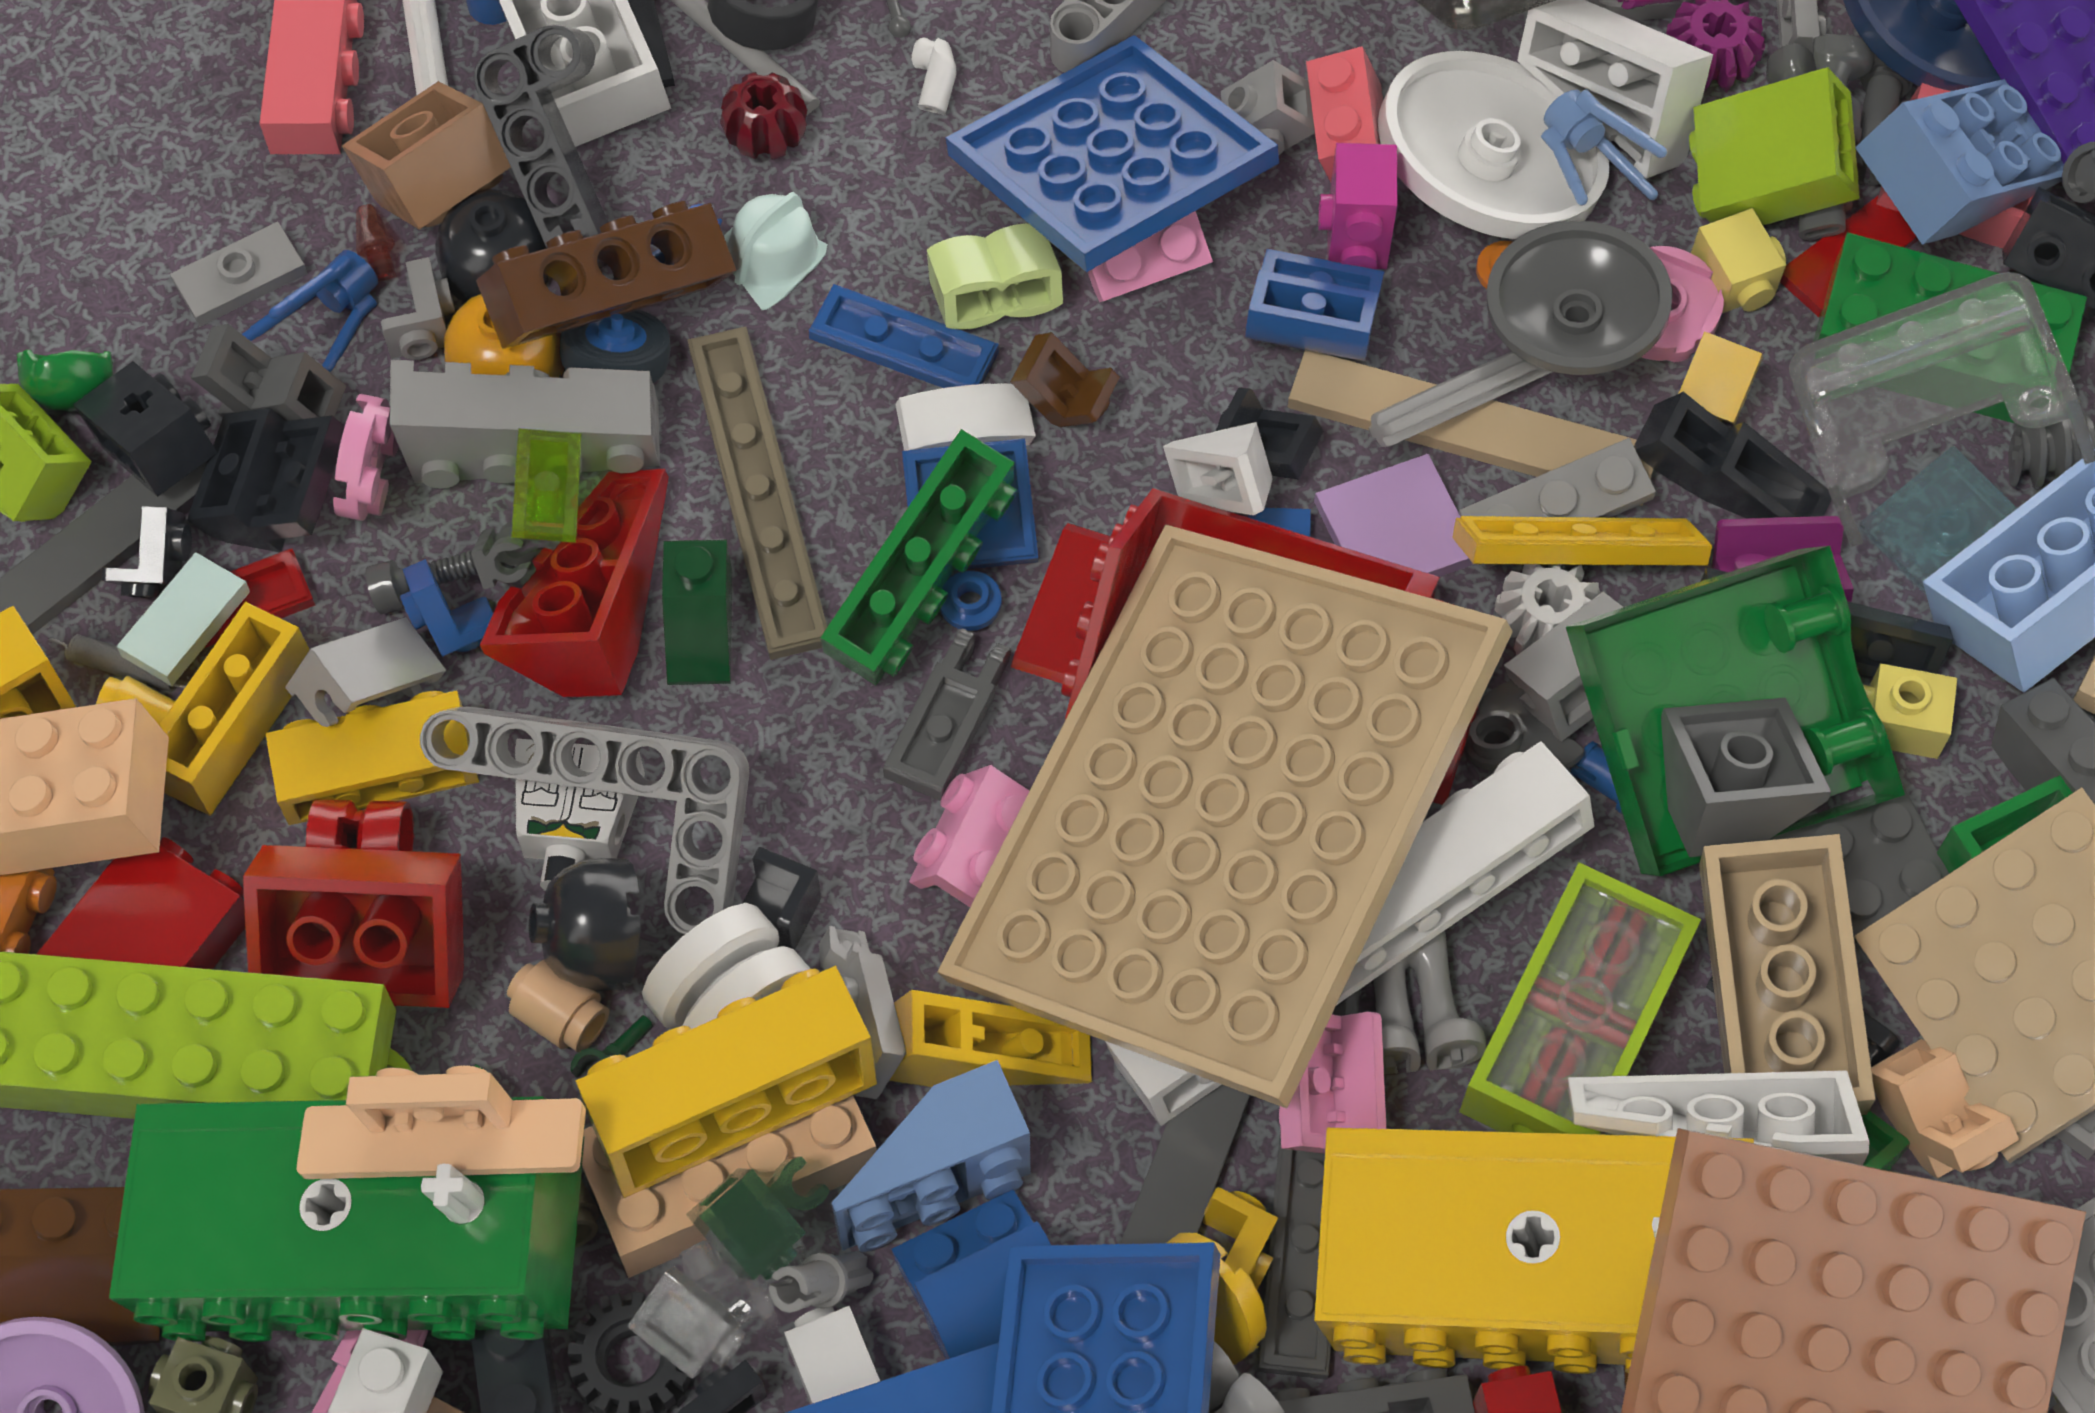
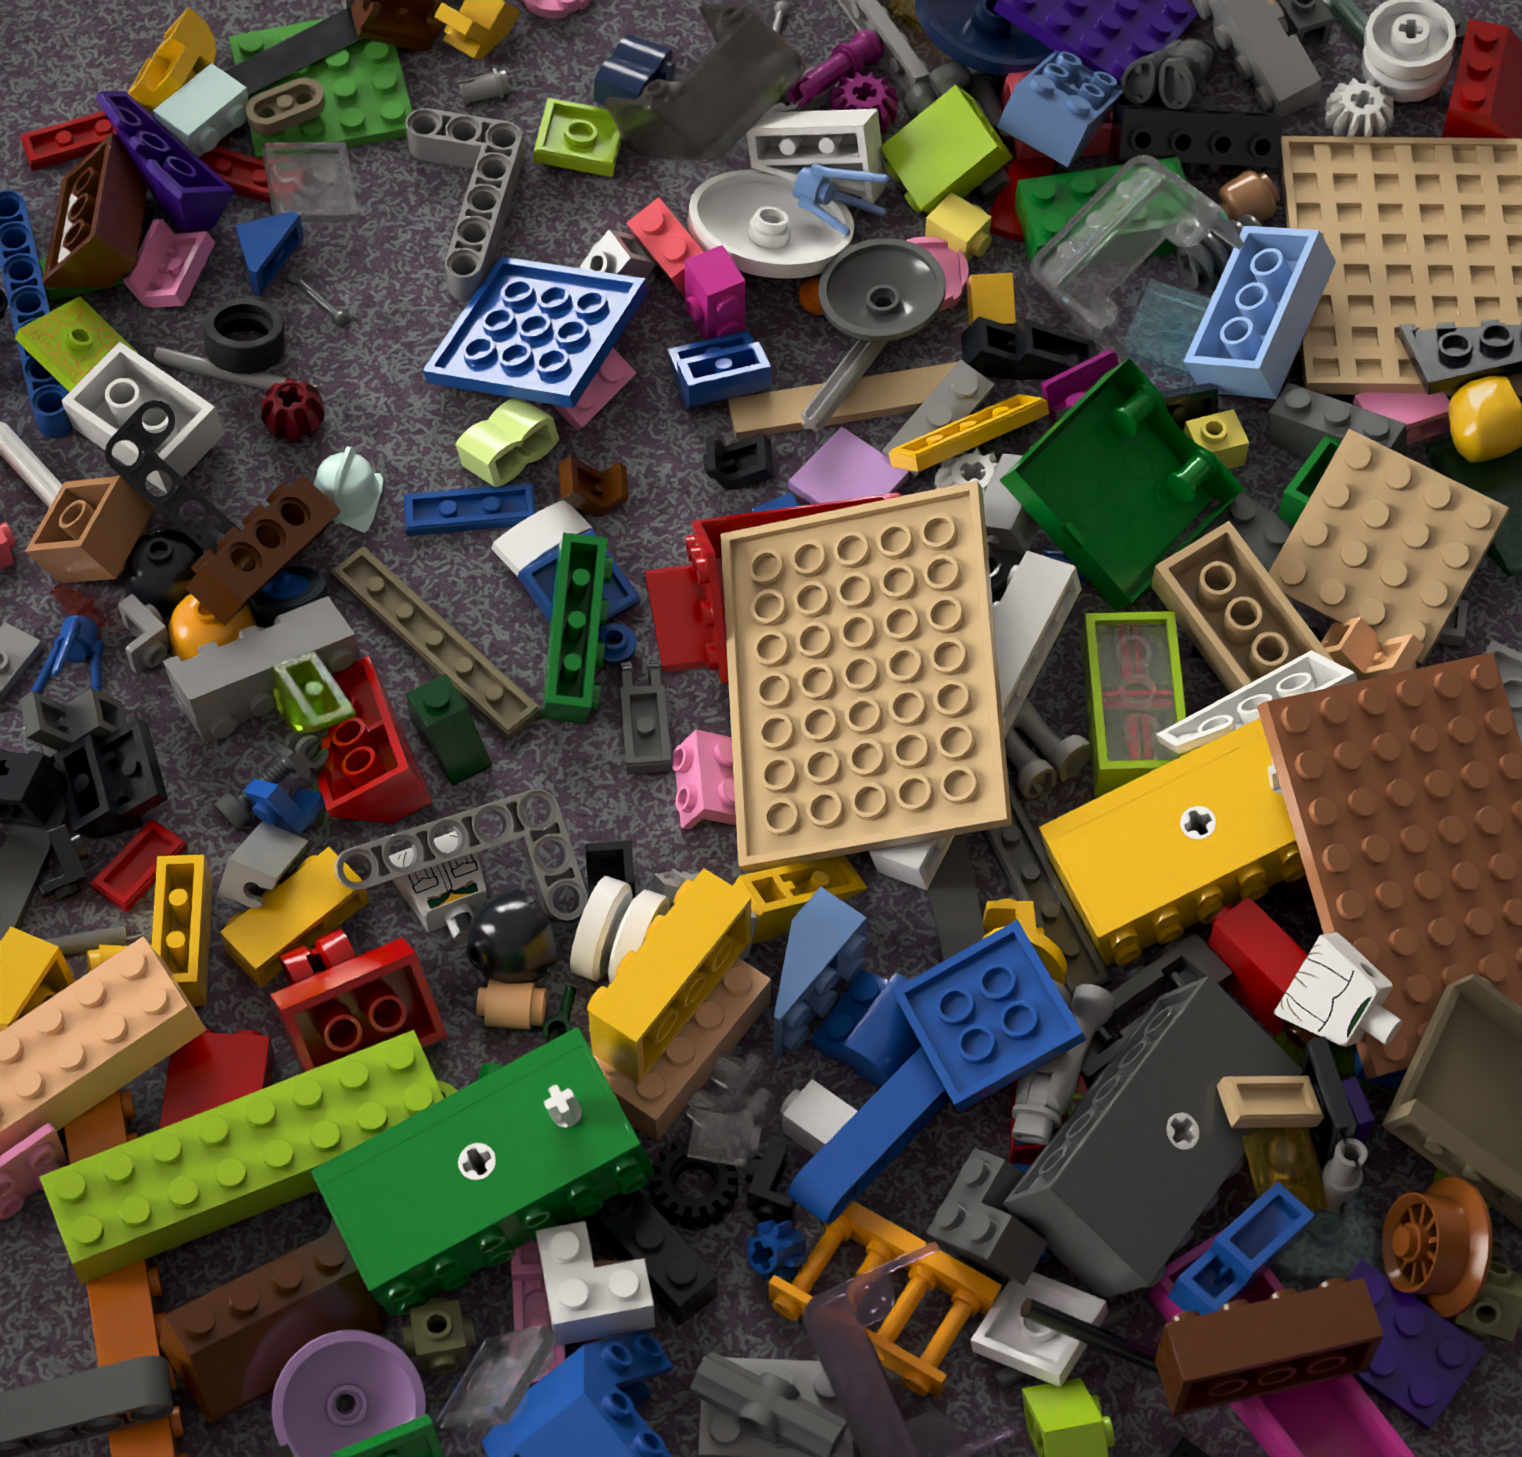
camera: 30 degrees left, 5 degrees down
(183, 619) = (112, 893): light aqua tile -> none
(362, 443) = (170, 735): bright pink plate -> none
(459, 1118) = (519, 1072): light nougat bracket -> none
(751, 1220) = (729, 1052): clear green brick -> none
(819, 1281) = (784, 1074): light grey axle -> none
(940, 75) = (388, 334): white arm -> none
(1222, 469) = (725, 490): white slope -> none
(1339, 1085) = (1030, 809): bright pink bracket -> none
(1737, 772) = (1144, 519): dark grey slope -> none

